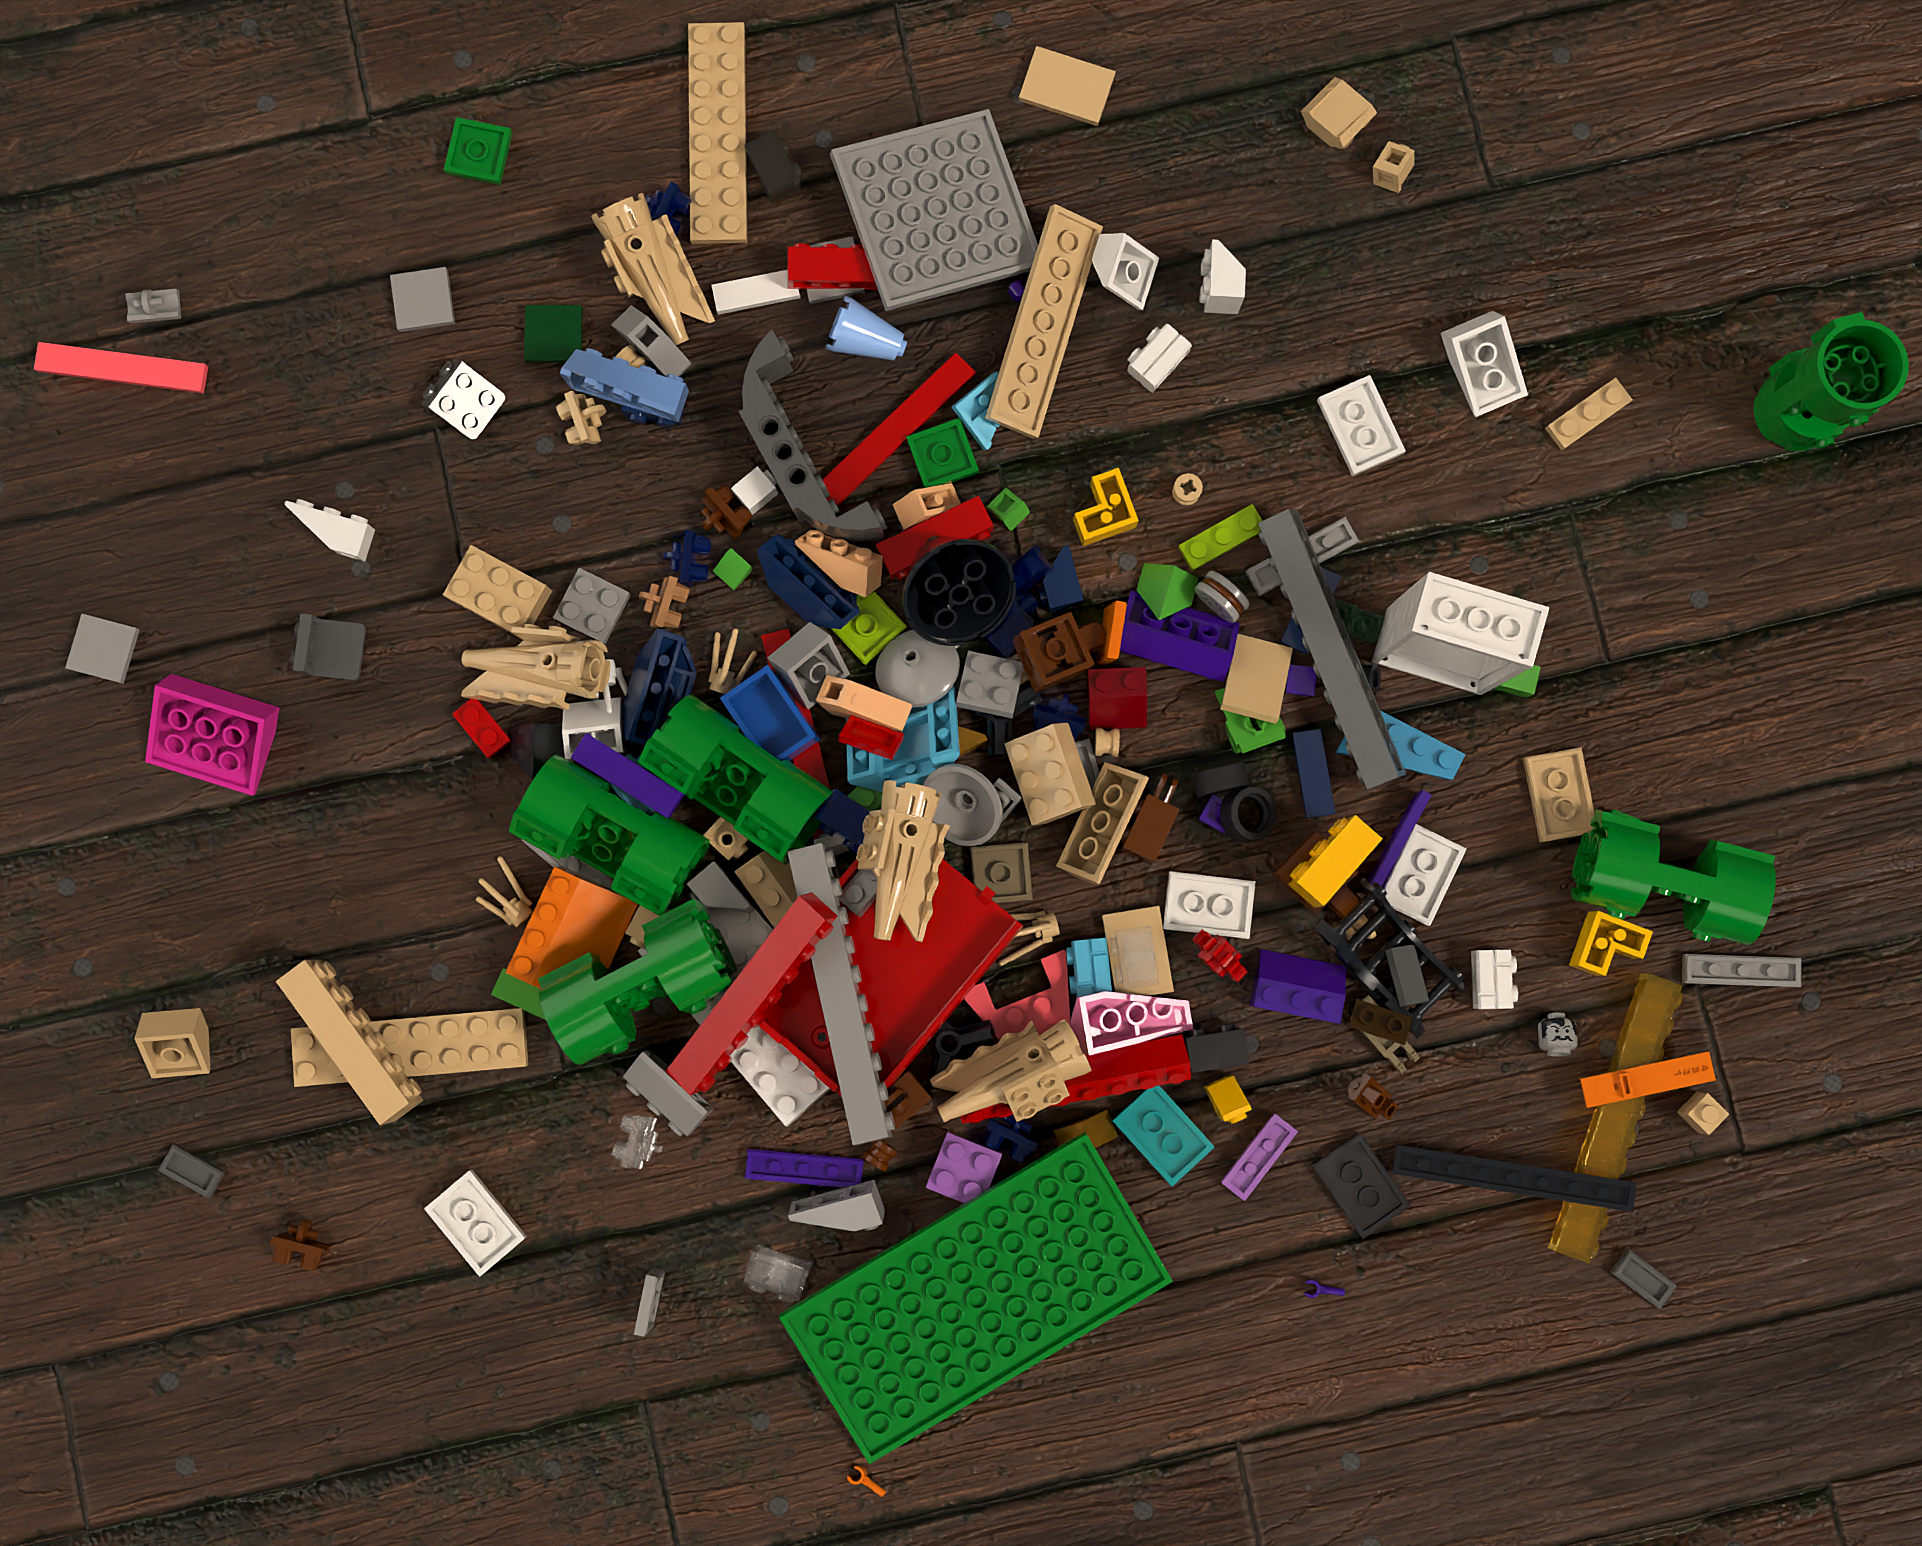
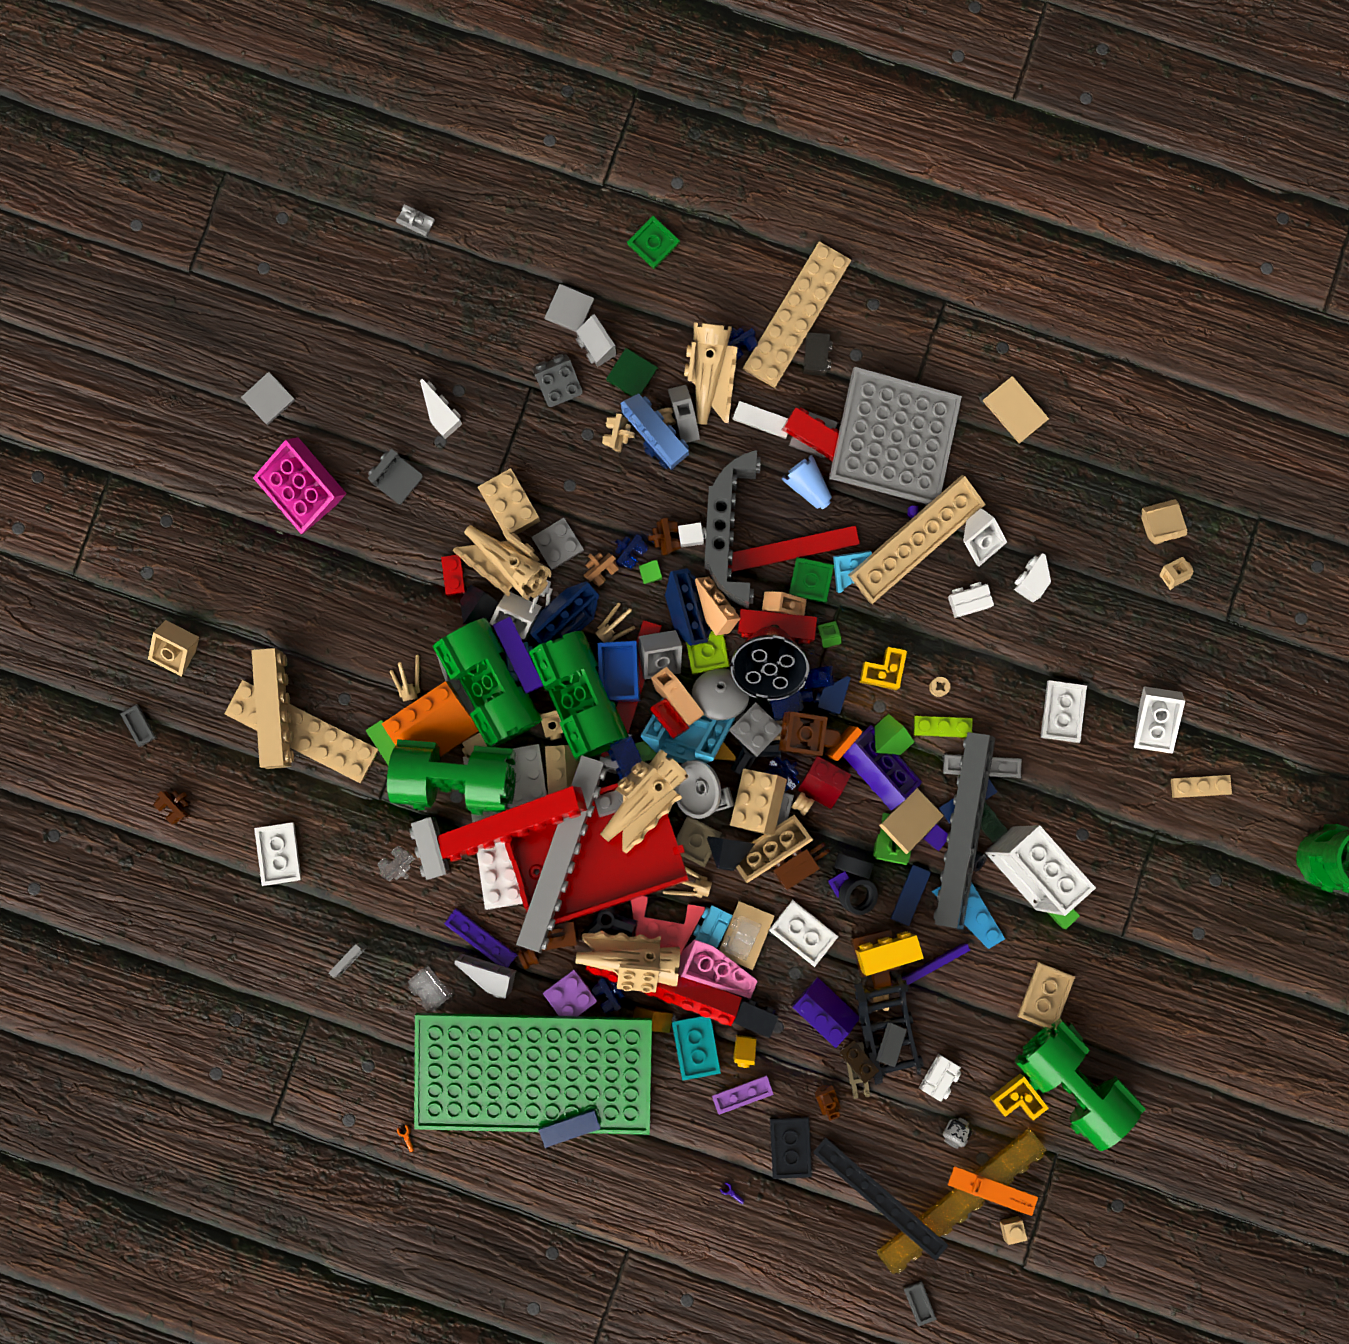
camera: 30 degrees right, 0 degrees up
(121, 367) = (375, 244): coral tile -> none
(481, 319) = (595, 341): none -> slope
(718, 891) = (528, 751): light grey slope -> none
(1051, 861) = (728, 852): none -> black slope
(1066, 1337) = (569, 1128): none -> dark blue tile
(1219, 955) = (791, 966): red gear -> none
(1222, 596) = (920, 761): light grey head -> none
(1422, 874) = (937, 992): white tile -> none
(1741, 970) = (1087, 1163): light grey tile -> none

